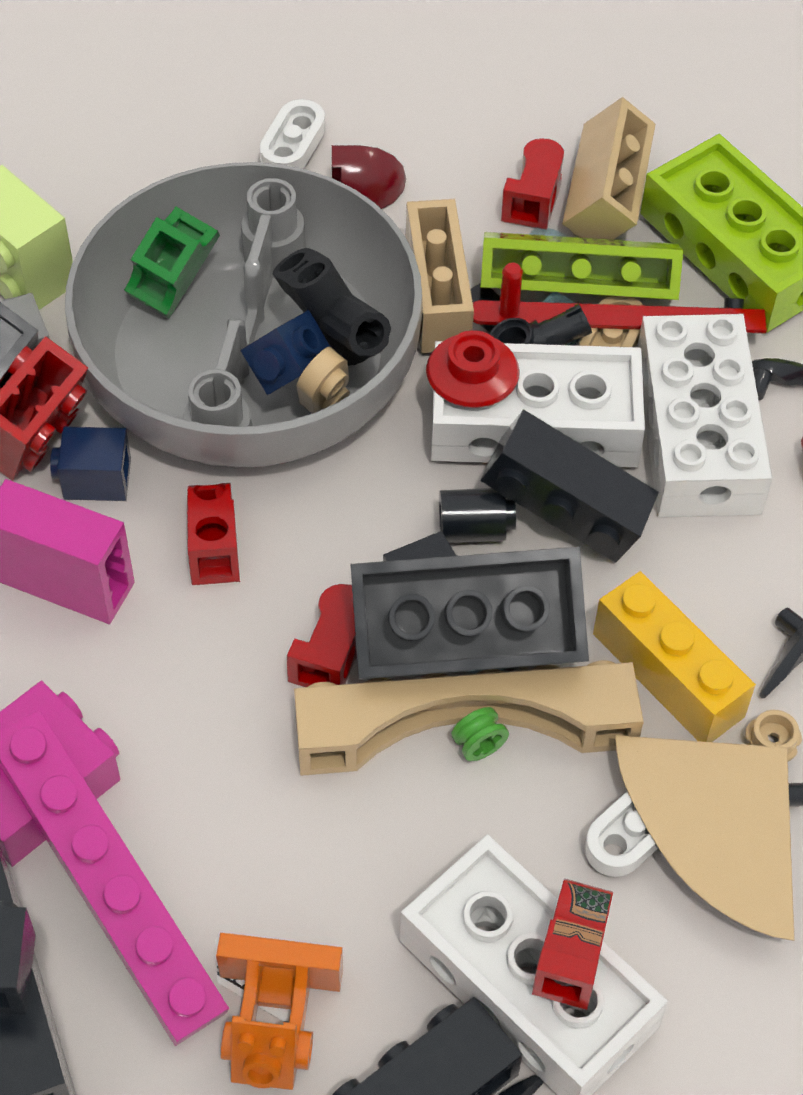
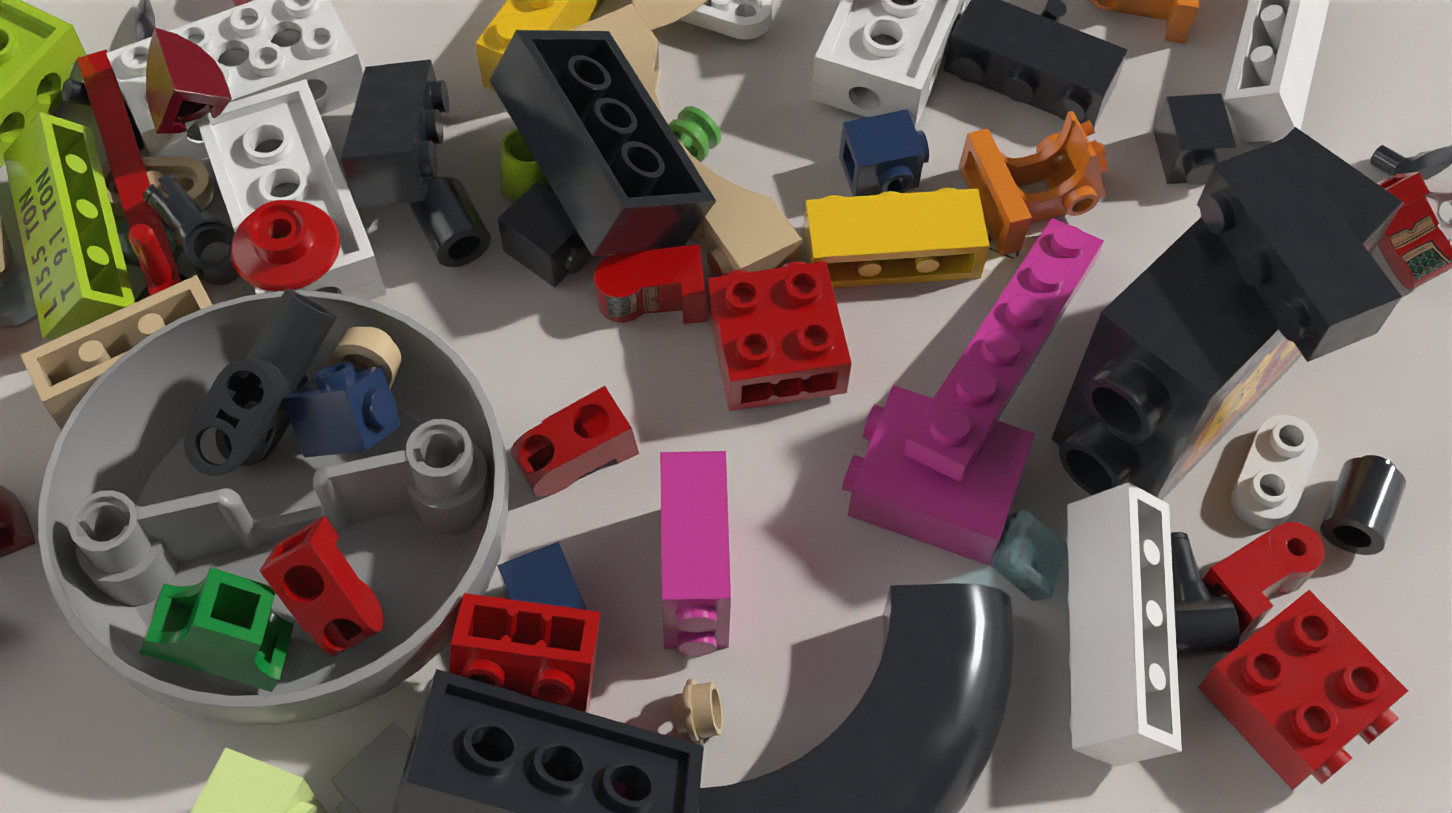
camera: 115 degrees left, 5 degrees up
(165, 315) = (323, 589): none -> red leg
(223, 701) = (778, 335): none -> red brick
(277, 849) = (897, 237): none -> yellow brick
(372, 883) = (883, 153): none -> dark blue brick
(664, 335) = (182, 83): none -> dark red brick

